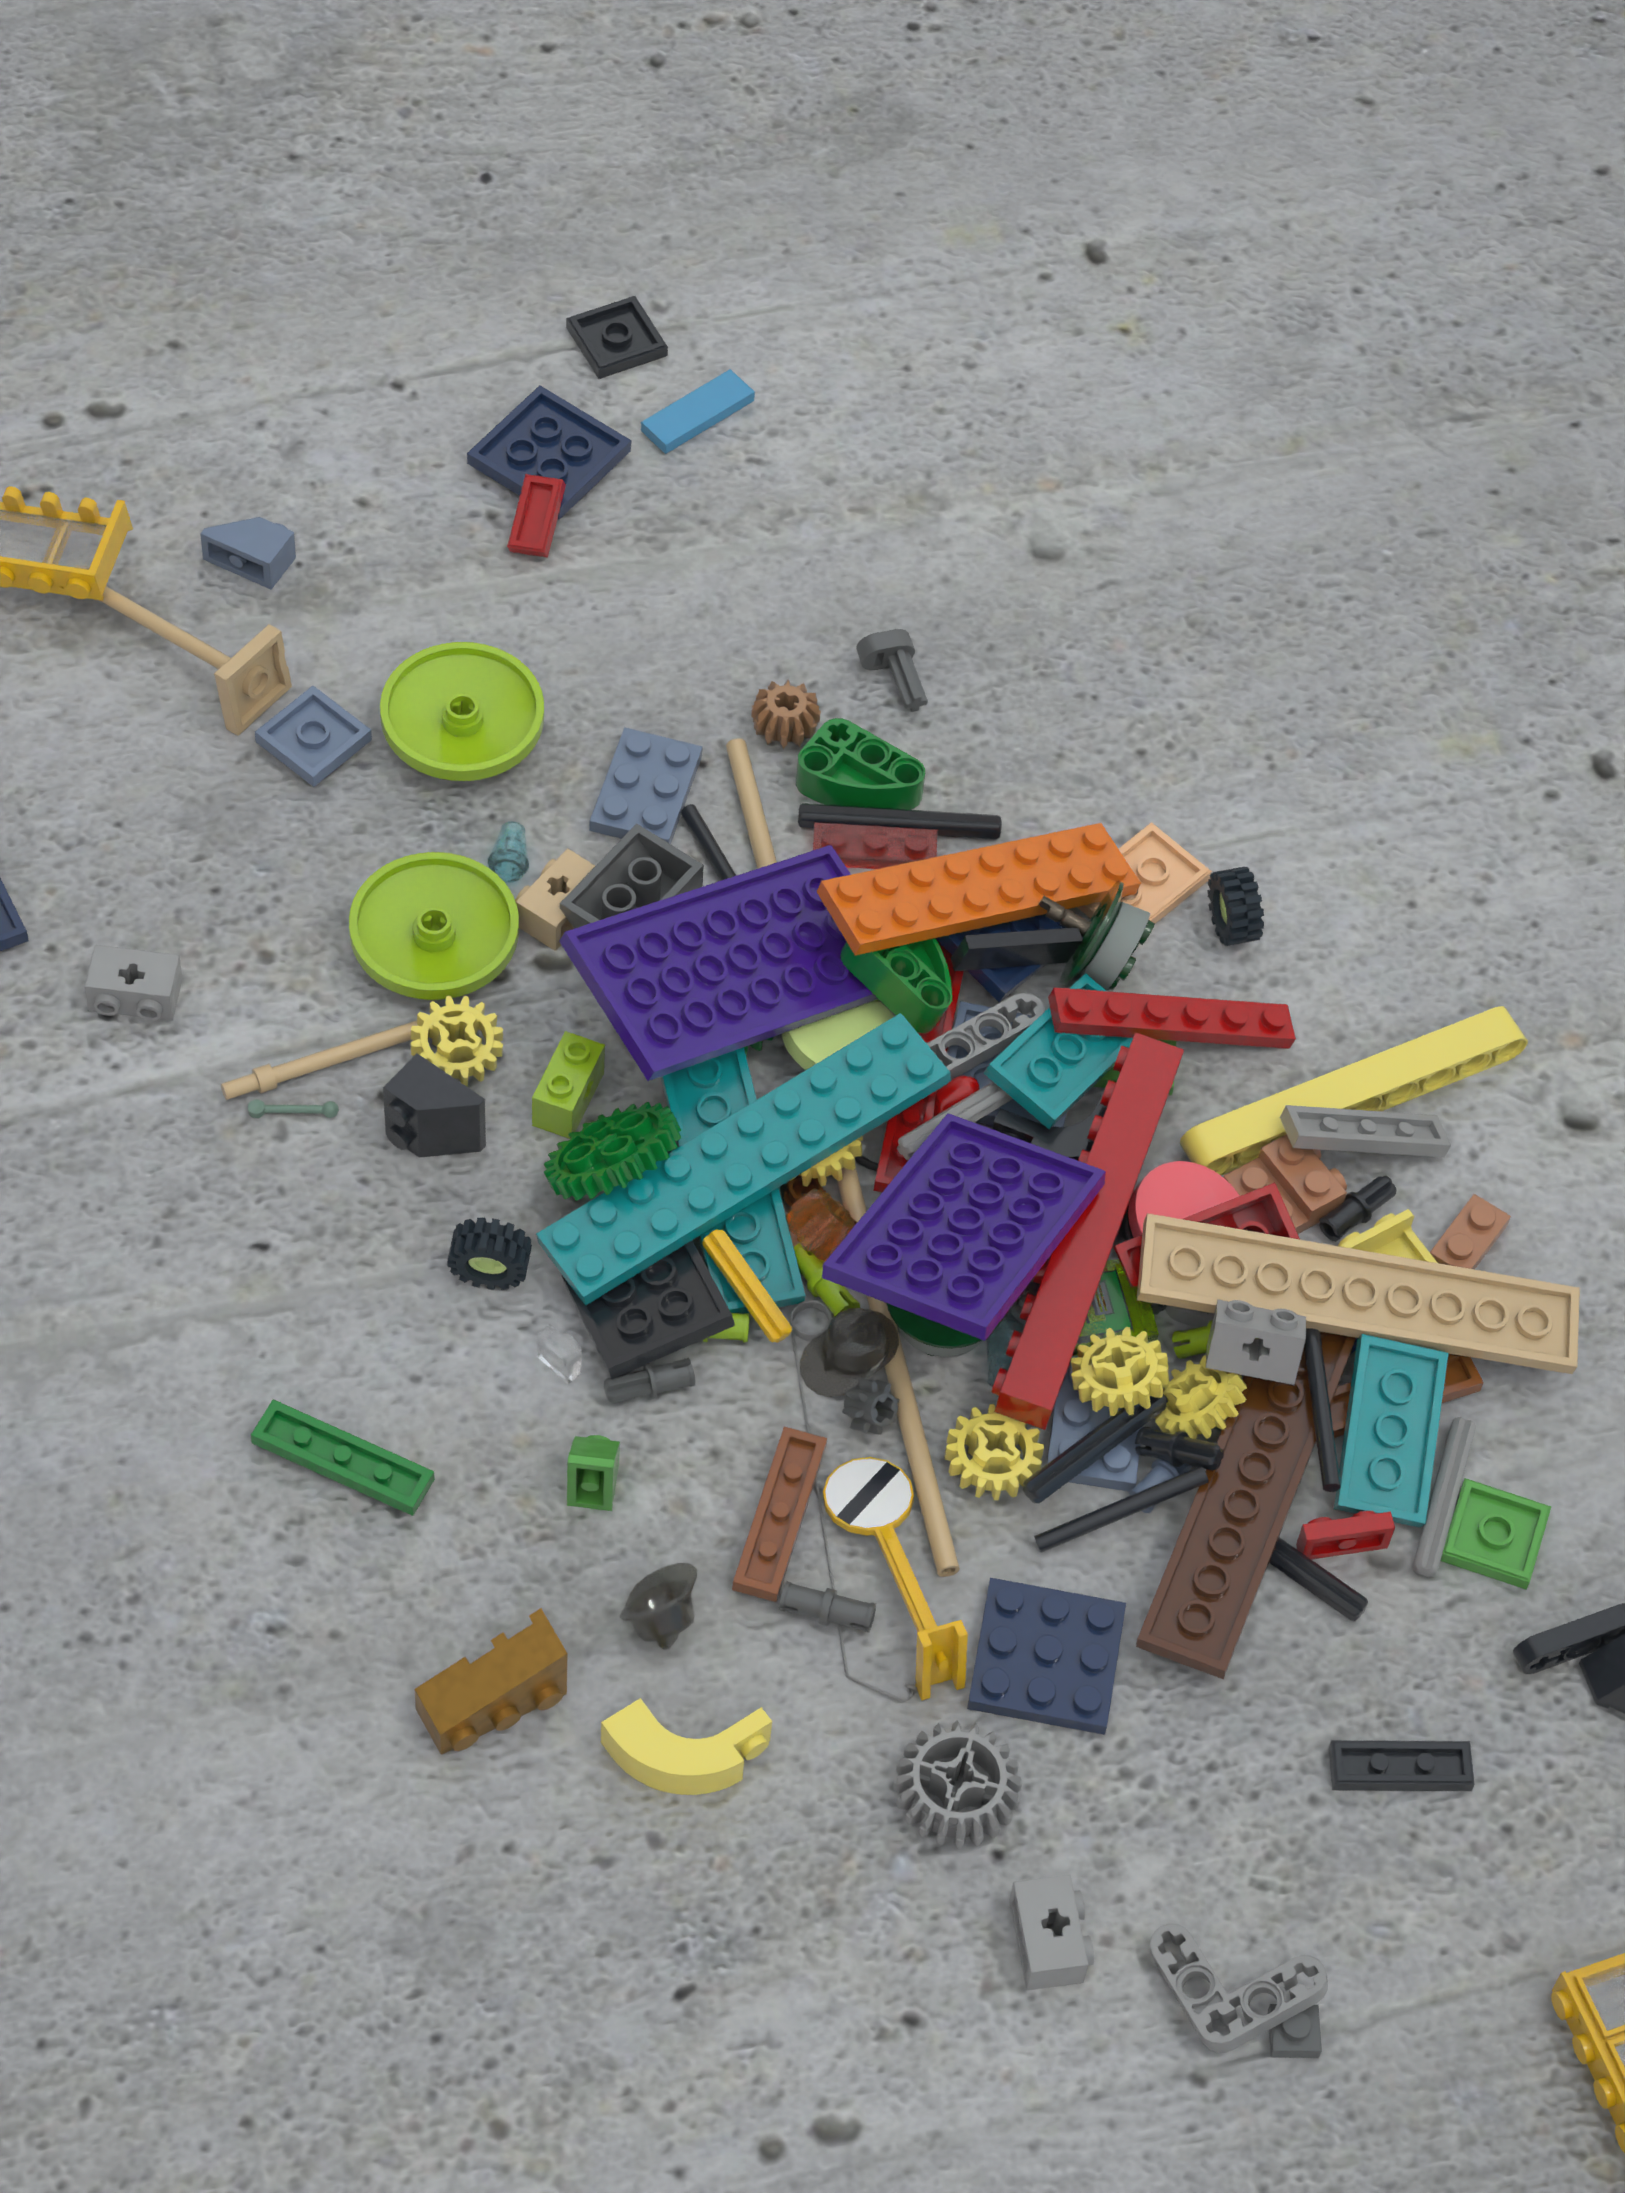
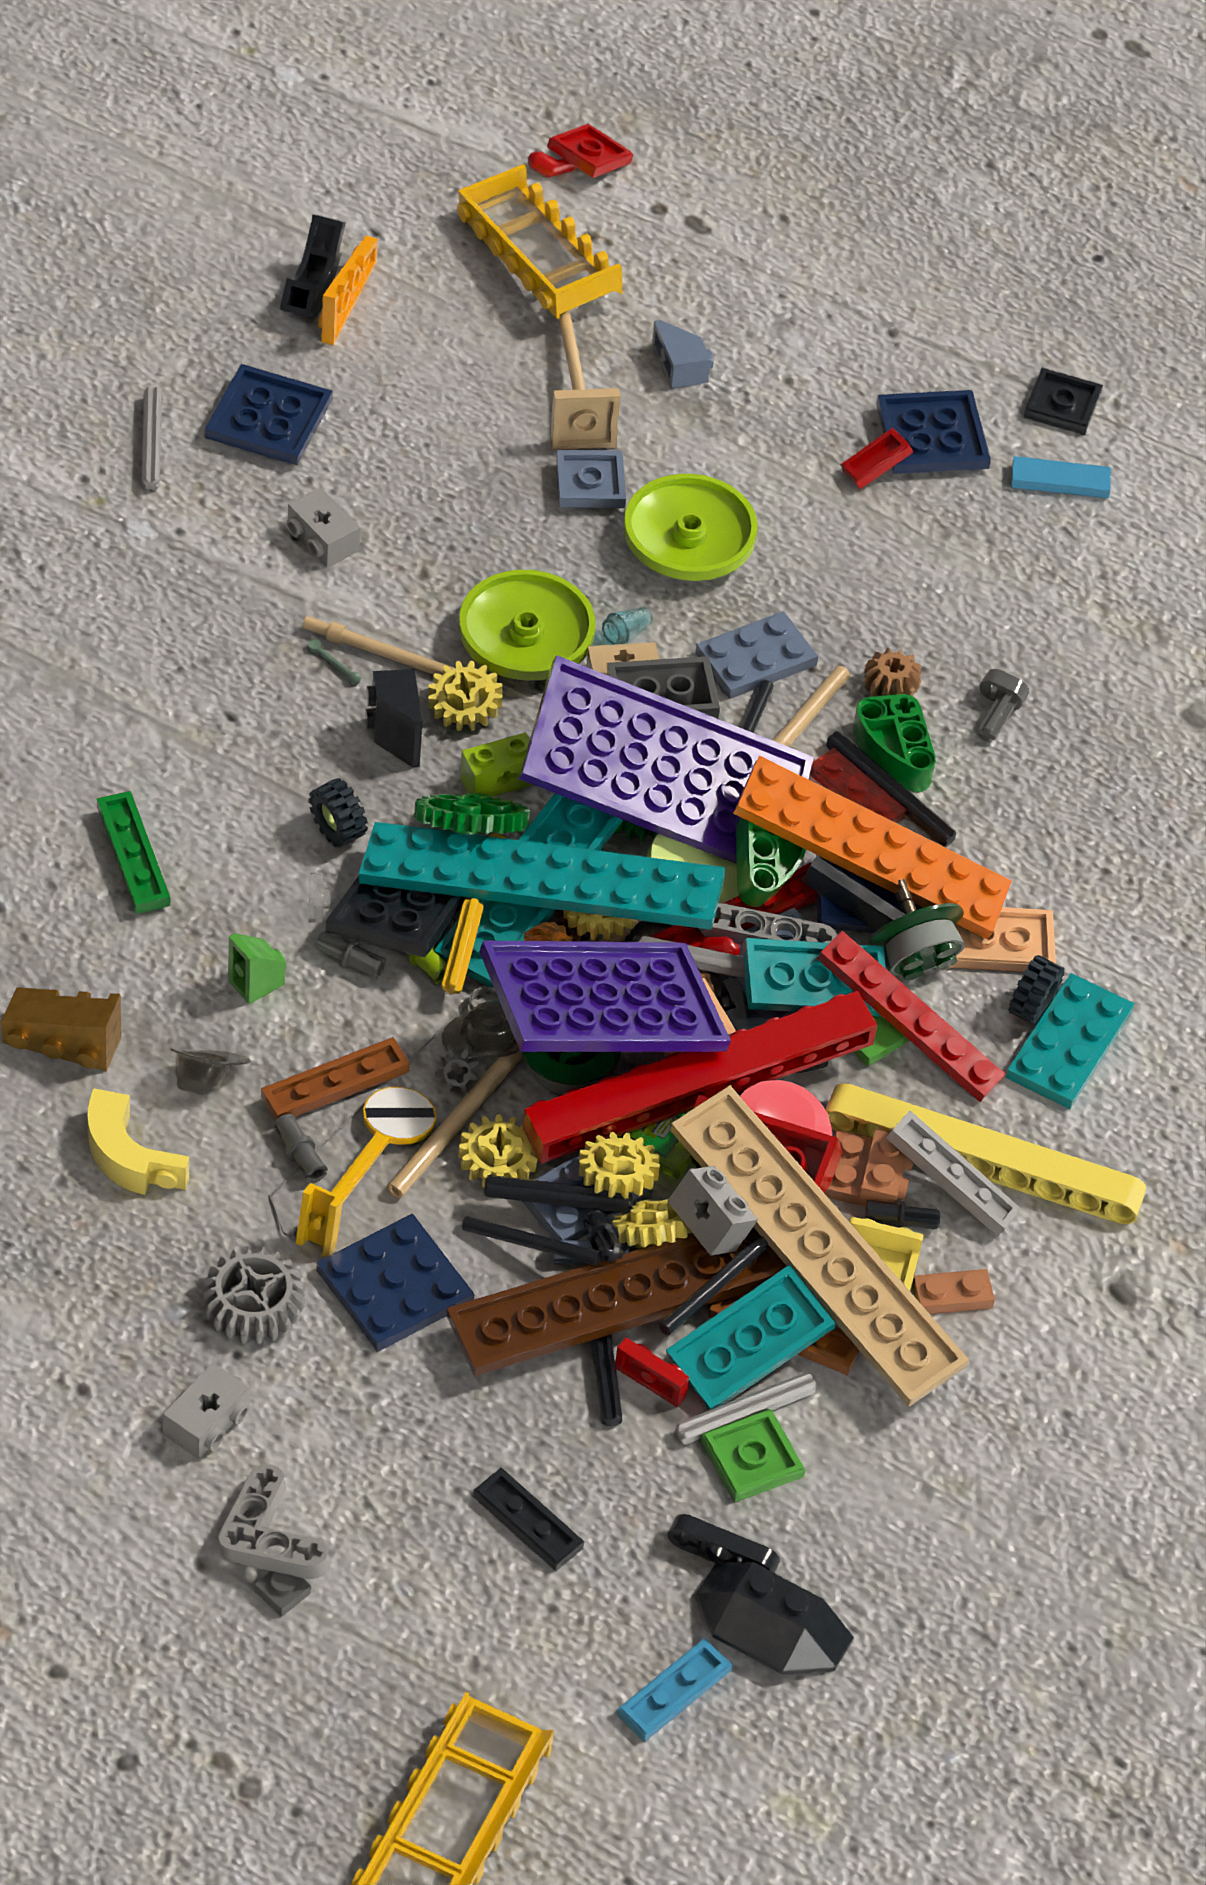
camera: 45 degrees right, 5 degrees down
(1301, 934) = (1070, 1040): none -> teal plate

